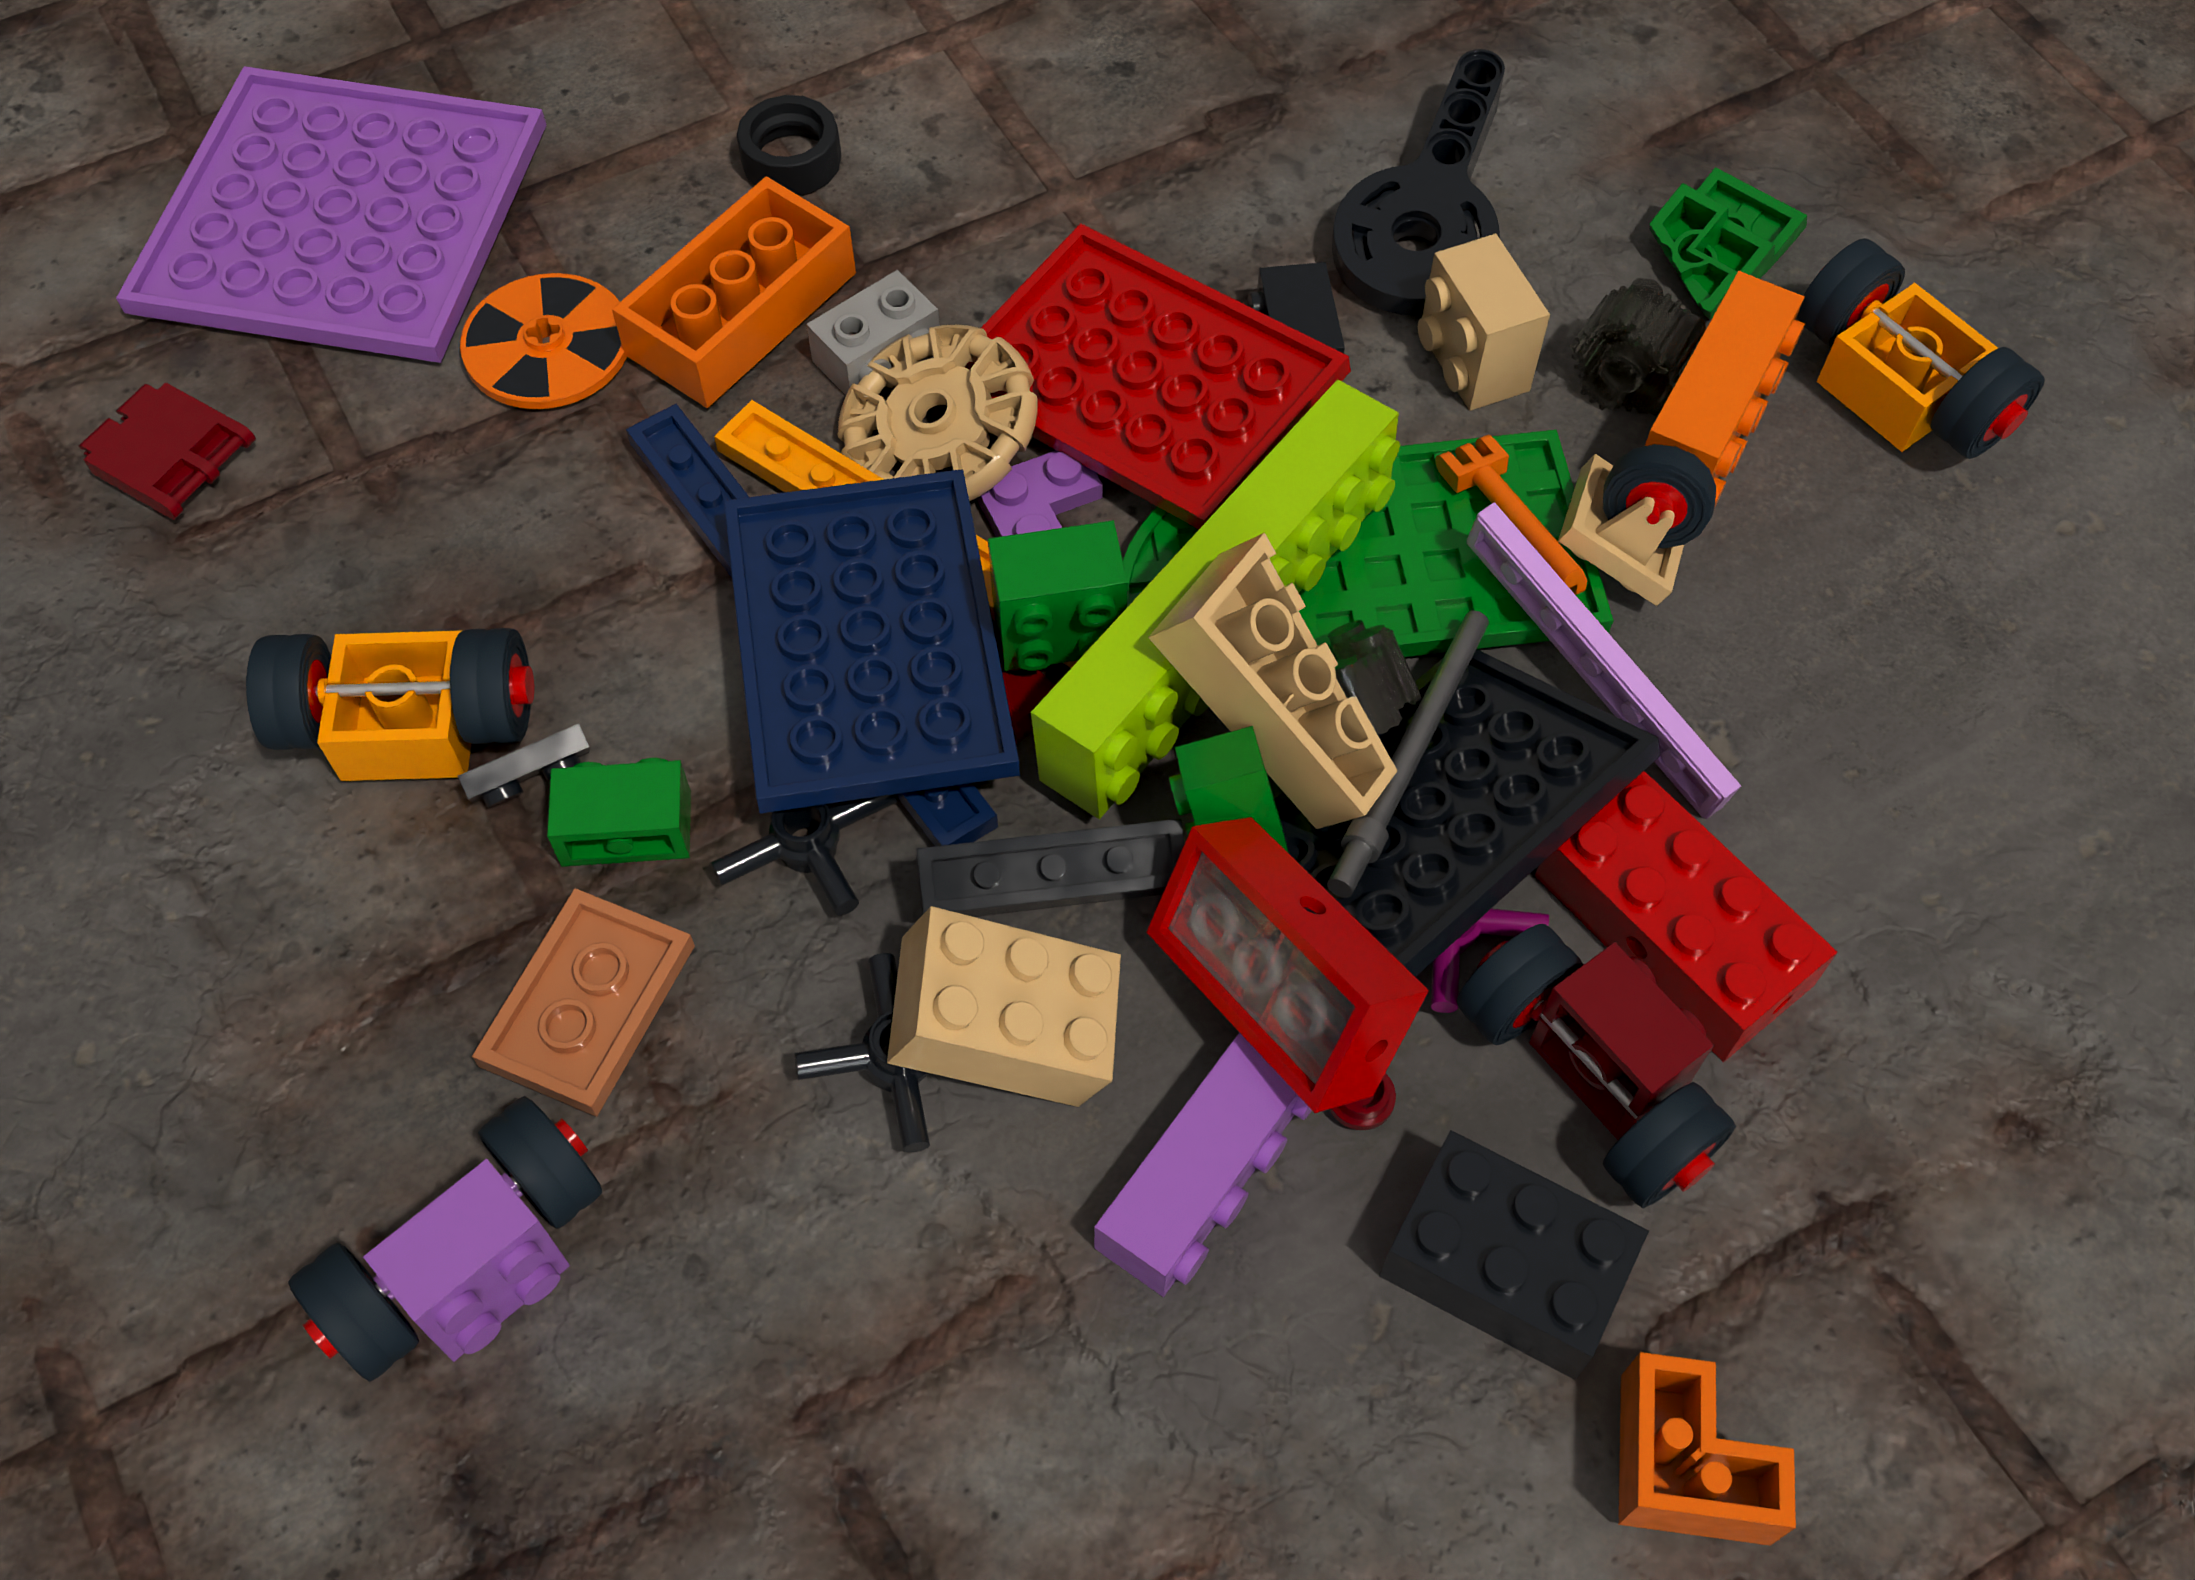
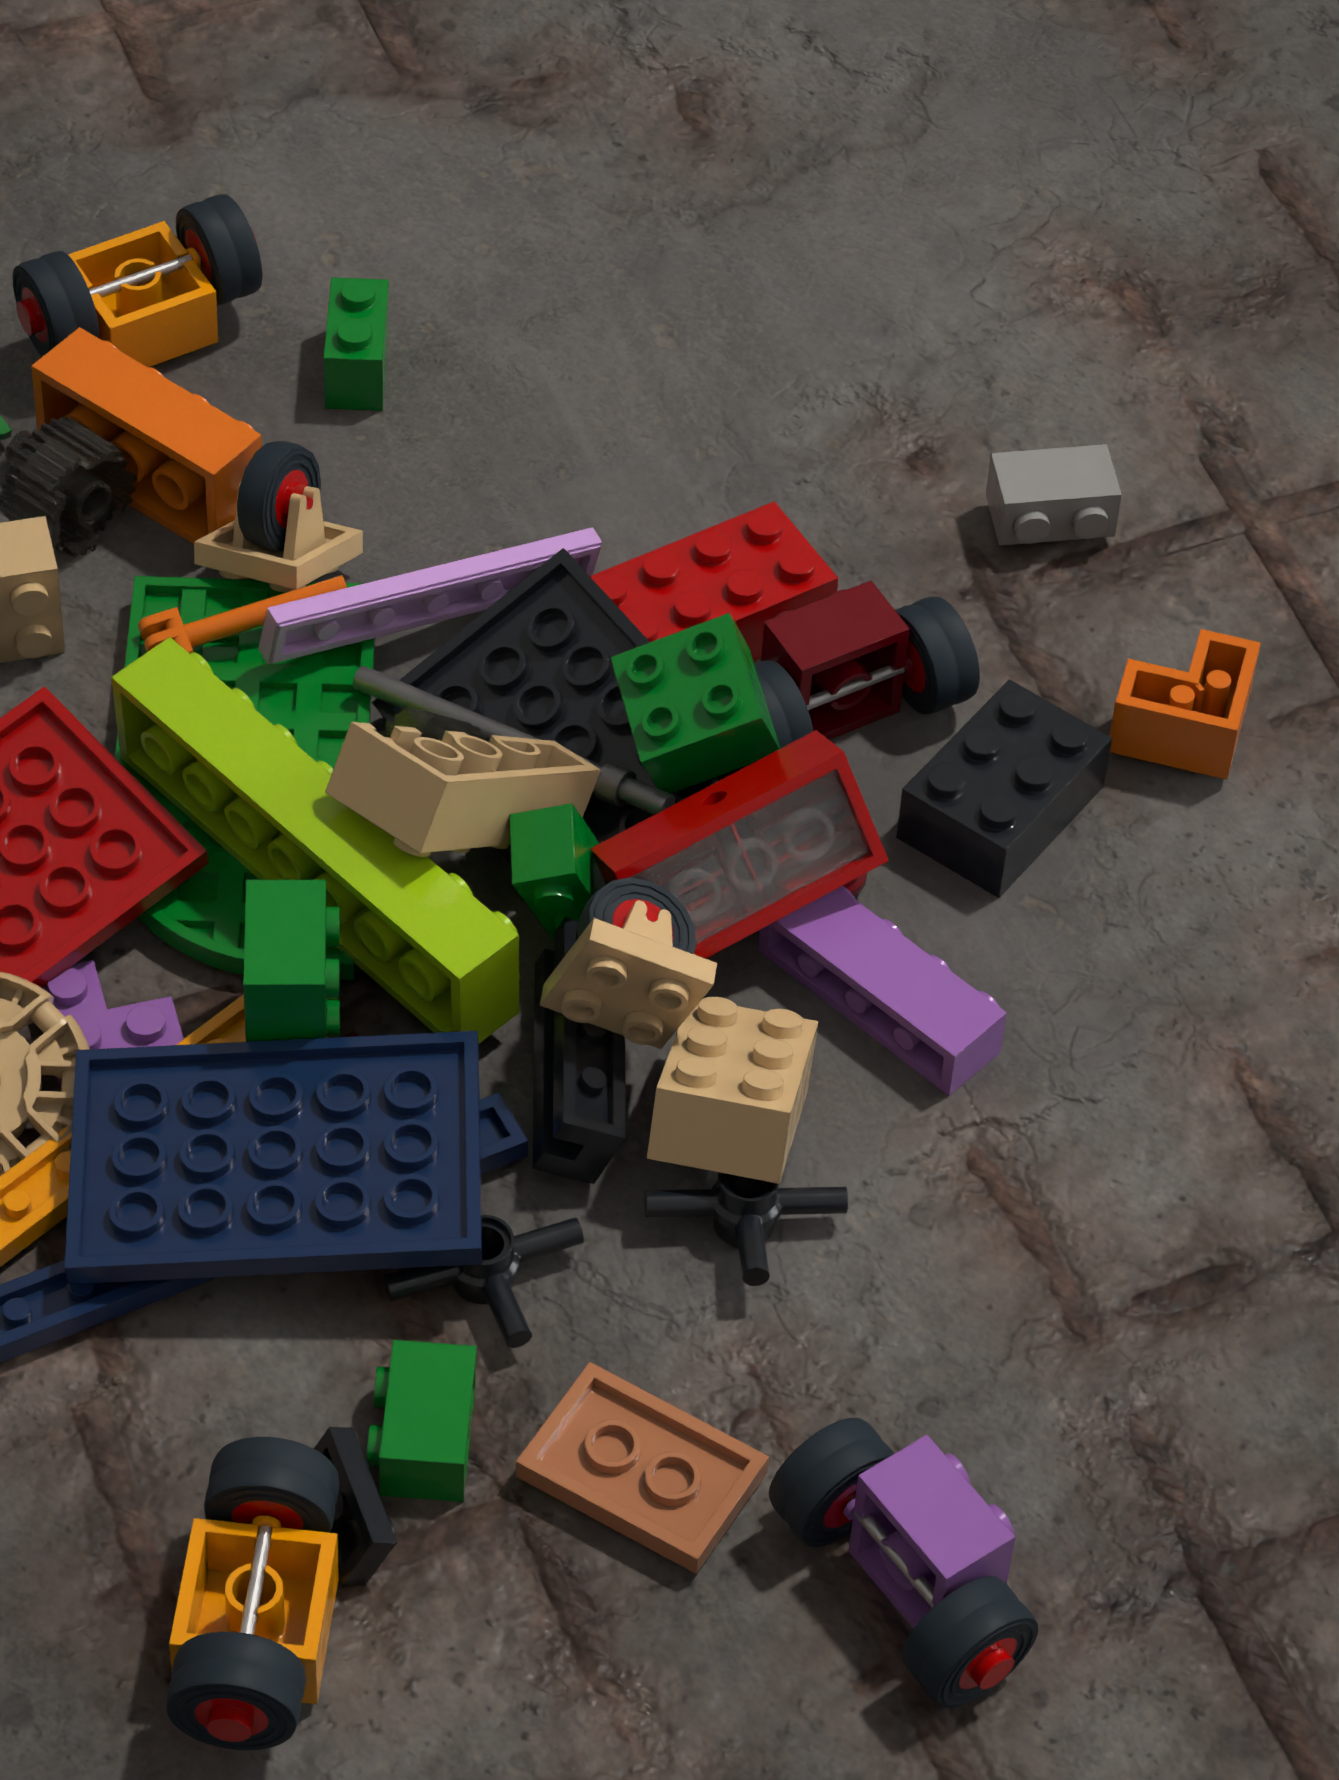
camera: 85 degrees left, 10 degrees down
(1113, 863) = (631, 964): none -> tan plate
(1449, 876) = (695, 704): none -> green brick
(1935, 553) = (356, 344): none -> green brick
(1987, 1268) = (1053, 494): none -> light grey brick

